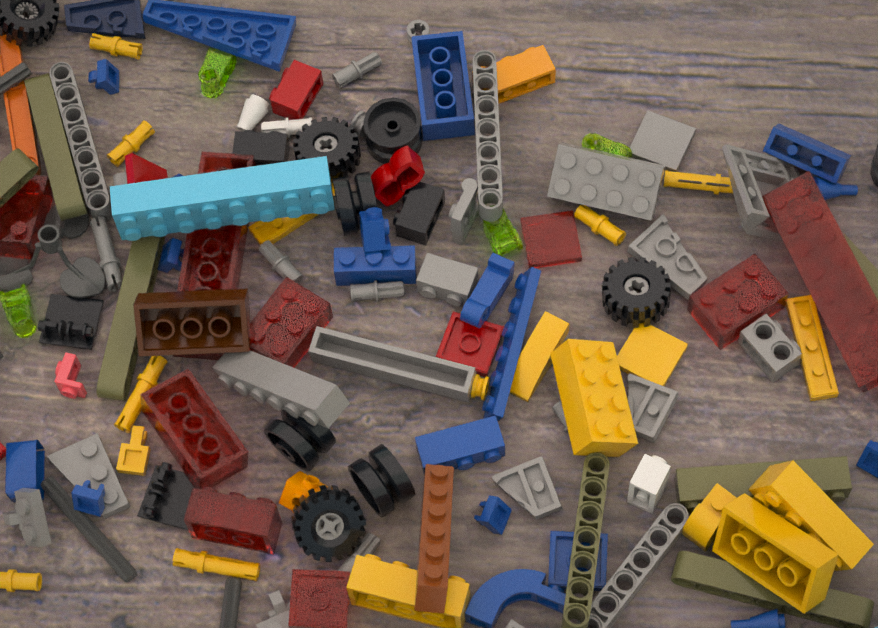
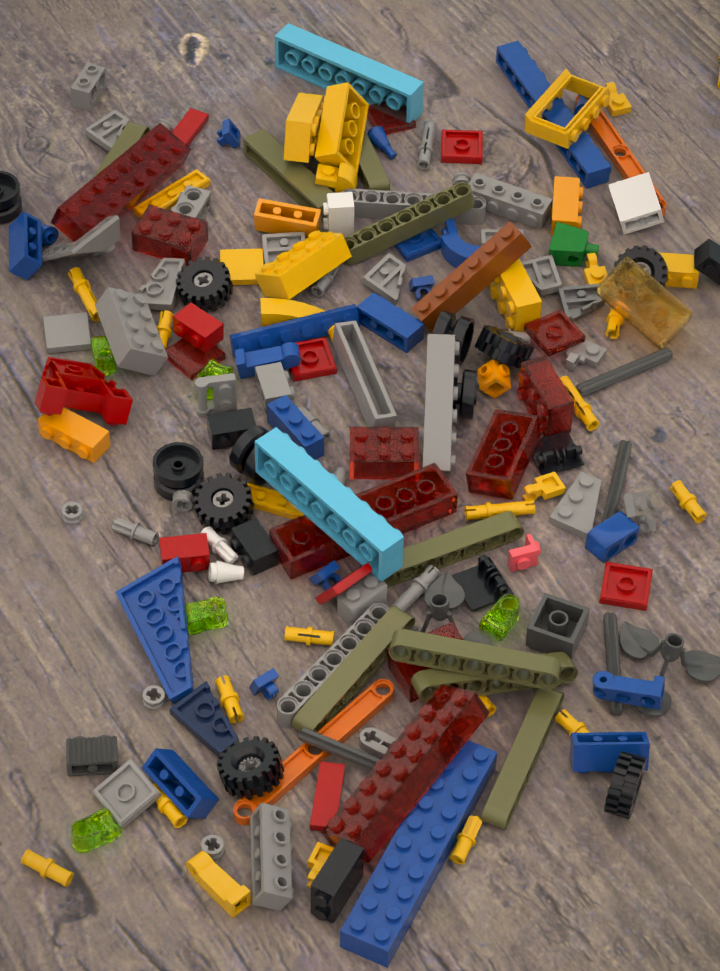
camera: 130 degrees left, 15 degrees down
(88, 499) = (600, 480): blue tile -> none
(192, 322) = (431, 478): reddish brown slope -> none
(374, 230) = (273, 418): blue brick -> none
(401, 173) = (215, 444): red brick -> none
(443, 85) = (113, 463): blue brick -> none
(487, 145) = (142, 403): light grey beam -> none
(568, 99) = (81, 388): none -> red wedge
(572, 247) = (198, 327): none -> red brick
(683, 427) = (285, 218): none -> light orange brick

